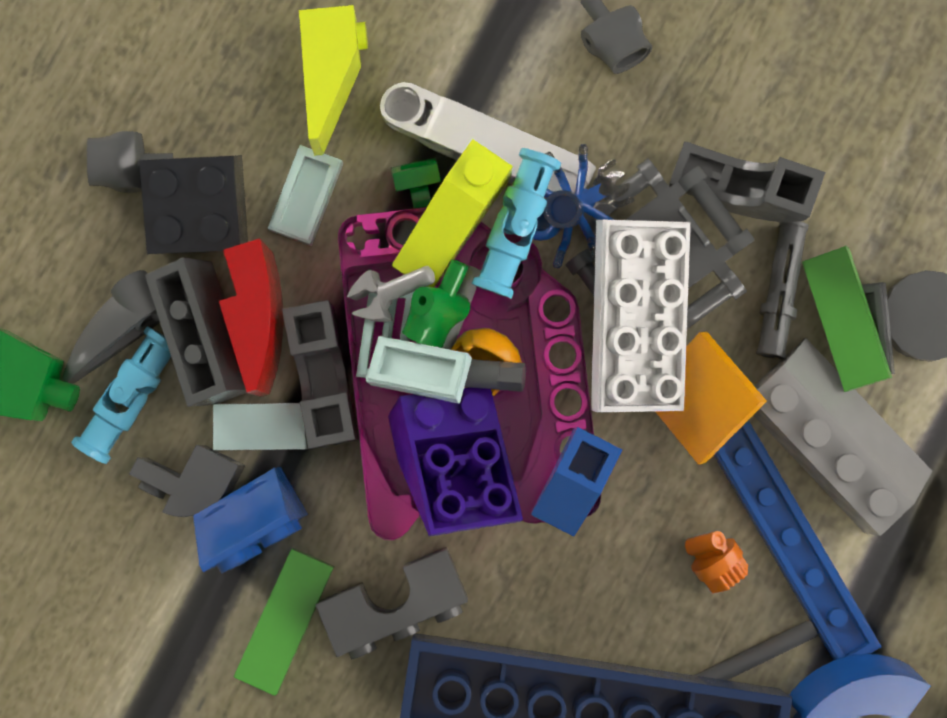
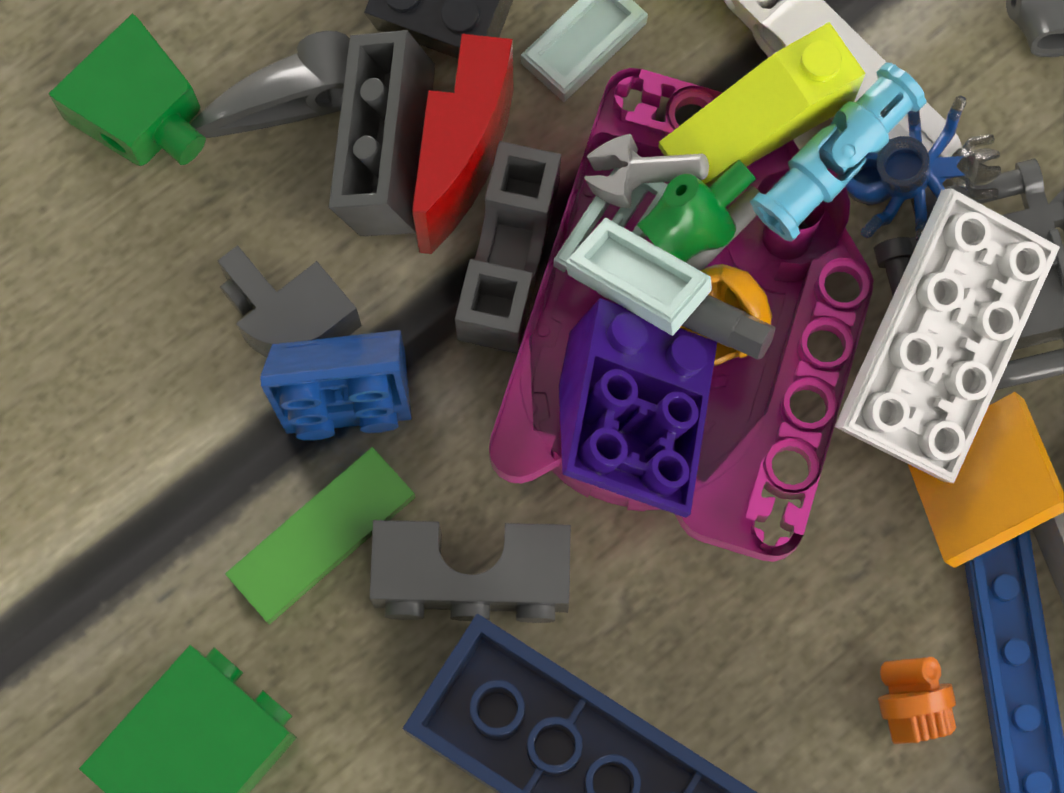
camera: 25 degrees right, 10 degrees down
(131, 388) = (267, 167): medium azure piece -> none
(258, 427) = (401, 284): light aqua tile -> none
(416, 178) = (727, 65): green tile -> none
(576, 481) = (781, 492): blue slope -> none

